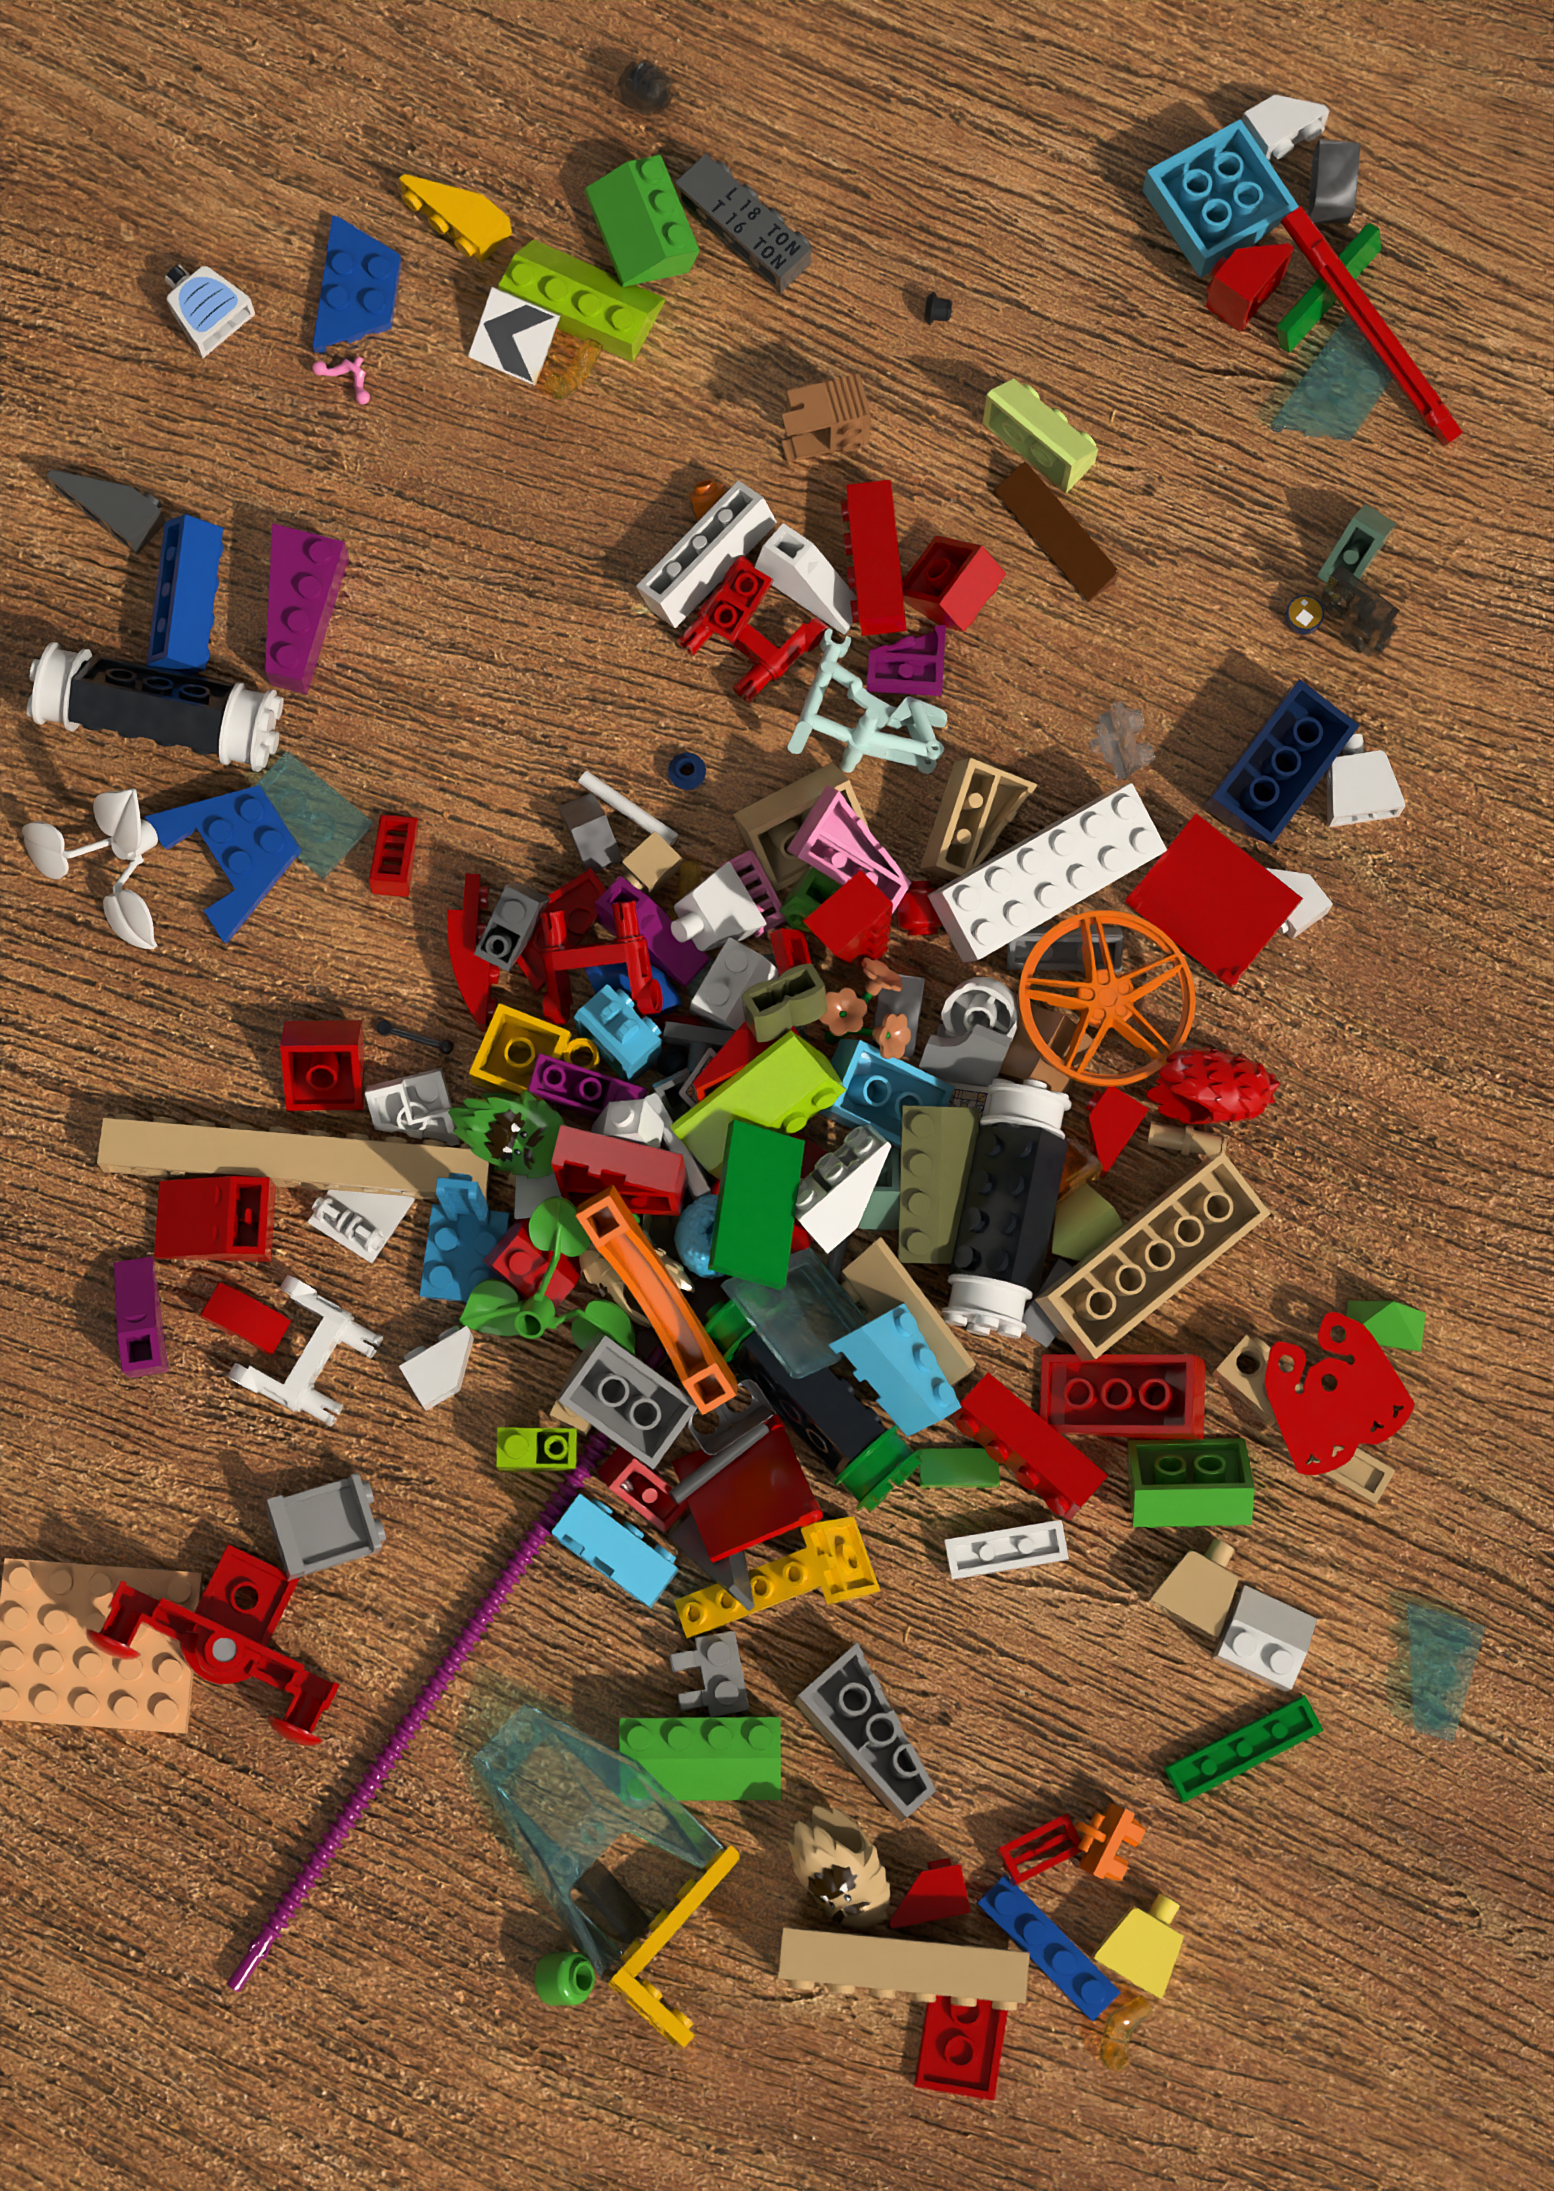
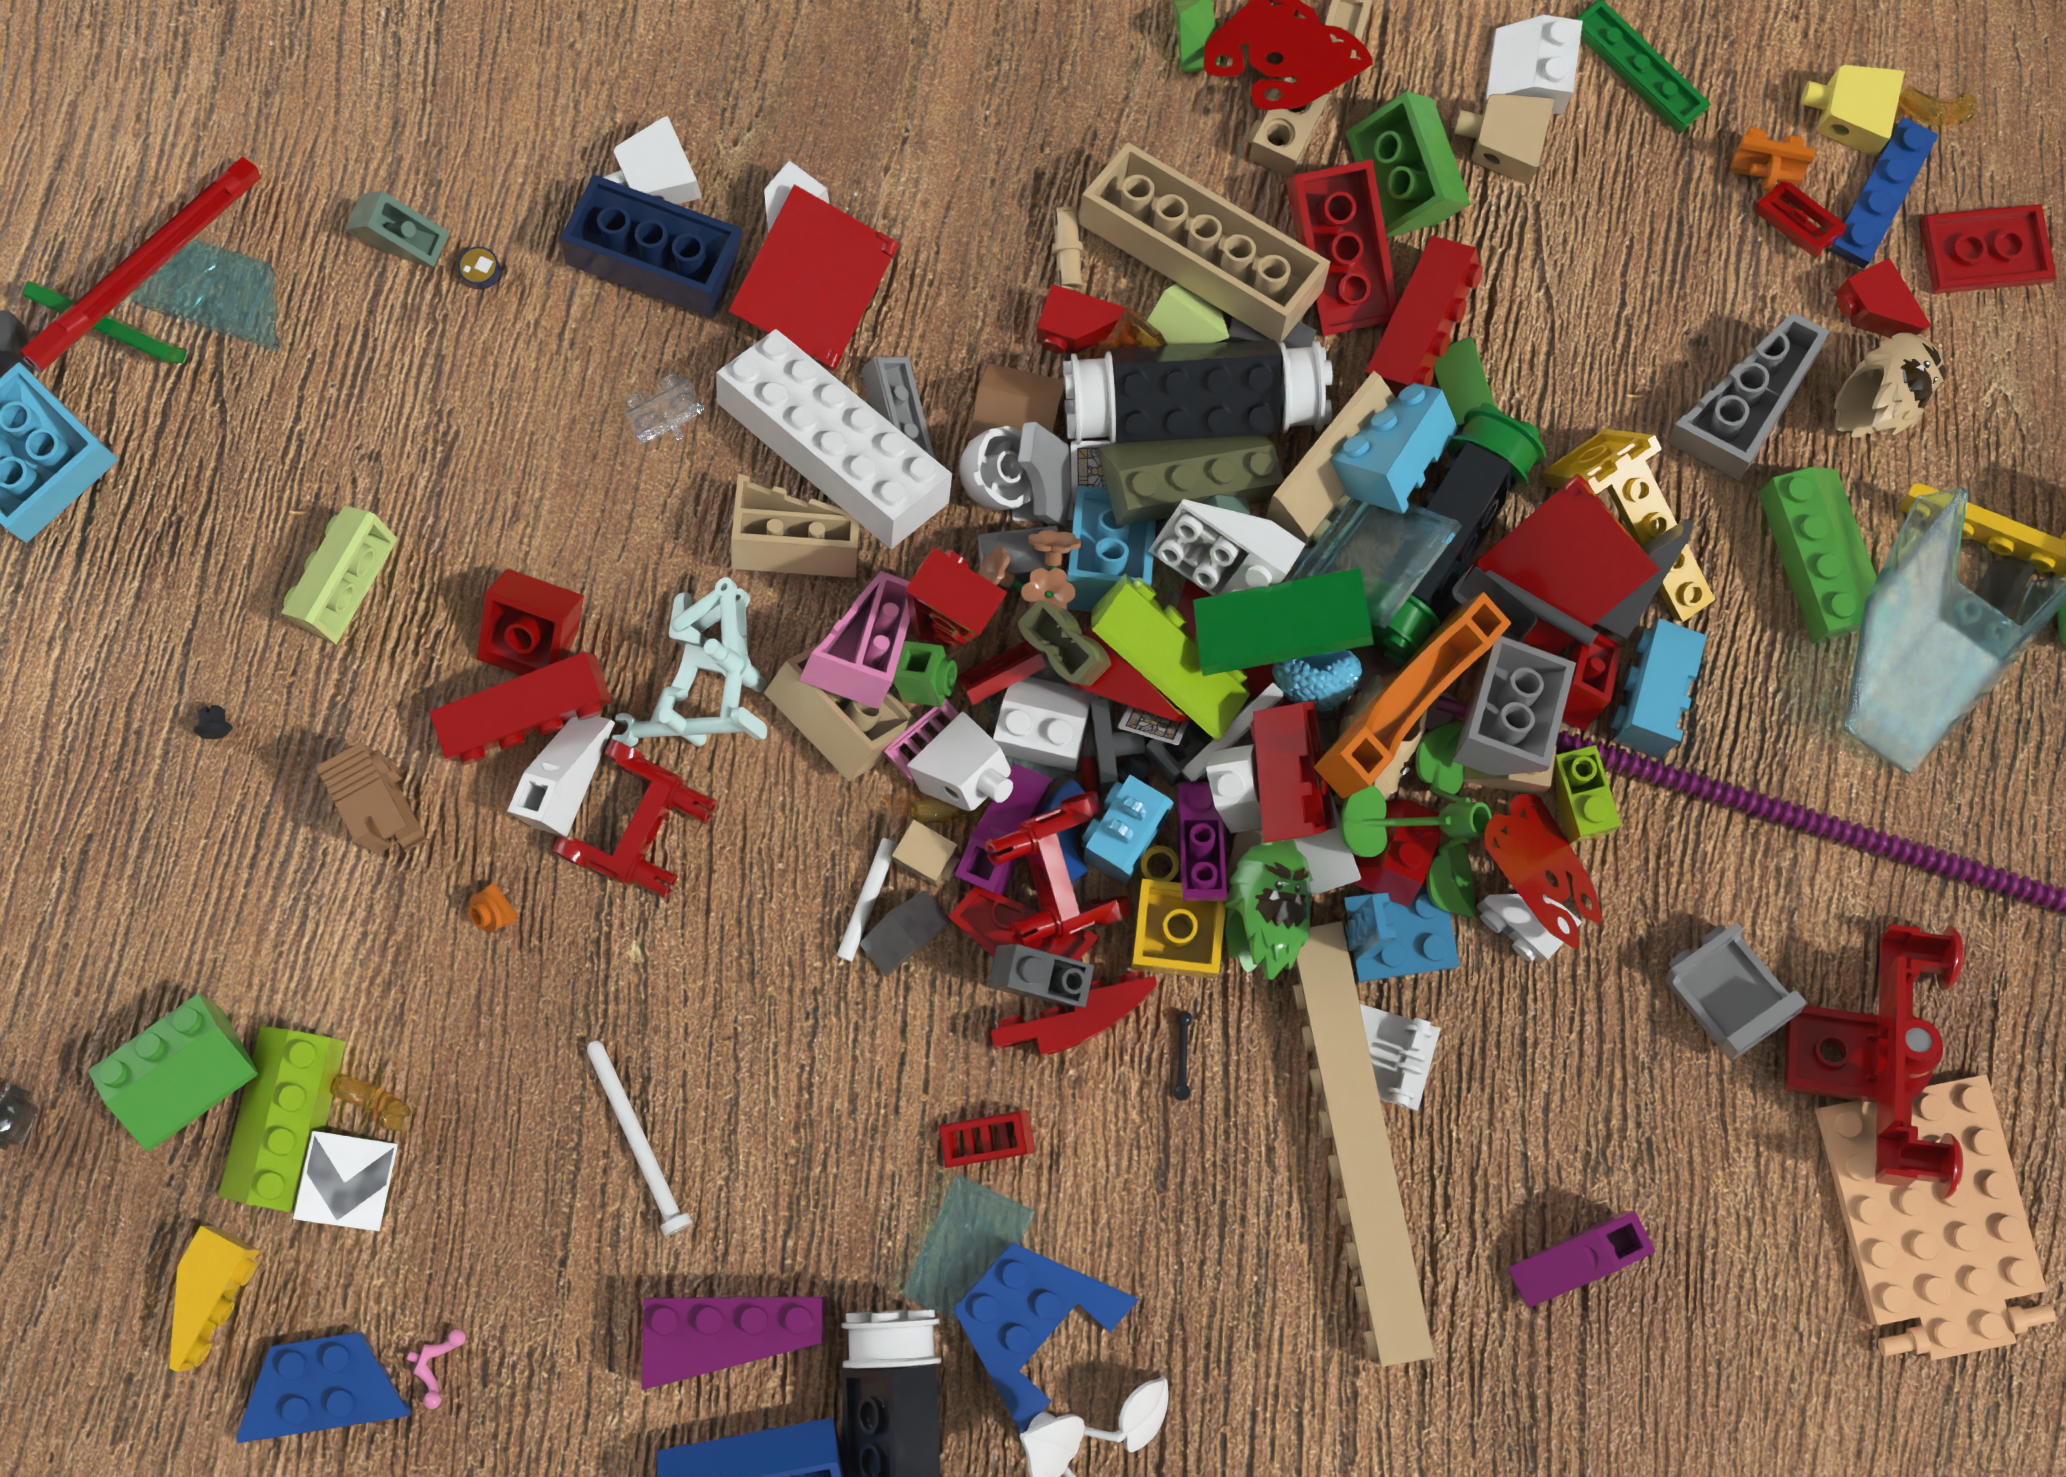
camera: 105 degrees left, 0 degrees up
(216, 1219) = (1451, 1210): red slope -> none
(245, 1318) = (1543, 1144): red slope -> none
(298, 1390) = (1599, 1063): white connector -> none
(323, 1065) = (1244, 1143): red slope -> none
(413, 1106) = (1259, 1034): white slope -> none
(480, 572) = (674, 1220): none -> white bar
(499, 1378) = (1525, 856): none -> red piece
(687, 782) = (815, 859): dark blue plate -> none
(706, 554) = (559, 889): white brick -> none
(721, 1675) = (1739, 556): light grey plate -> none
(737, 601) = (610, 837): red slope -> none
(744, 222) = (150, 959): dark grey brick -> none
(904, 1965) = (1964, 299): tan brick -> none
(909, 665) = (633, 645): magenta wing -> none
(916, 911) = (900, 561): red head -> none
(1006, 1549) = (1528, 319): white plate -> none
(1057, 532) = (444, 533): reddish brown slope -> none
(1106, 998) = (952, 348): orange wheel -> none
(1212, 1087) = (1012, 229): red head -> none
(1246, 282) = (119, 400): red slope -> none
(1366, 612) = (469, 200): clear smoke plate -> none

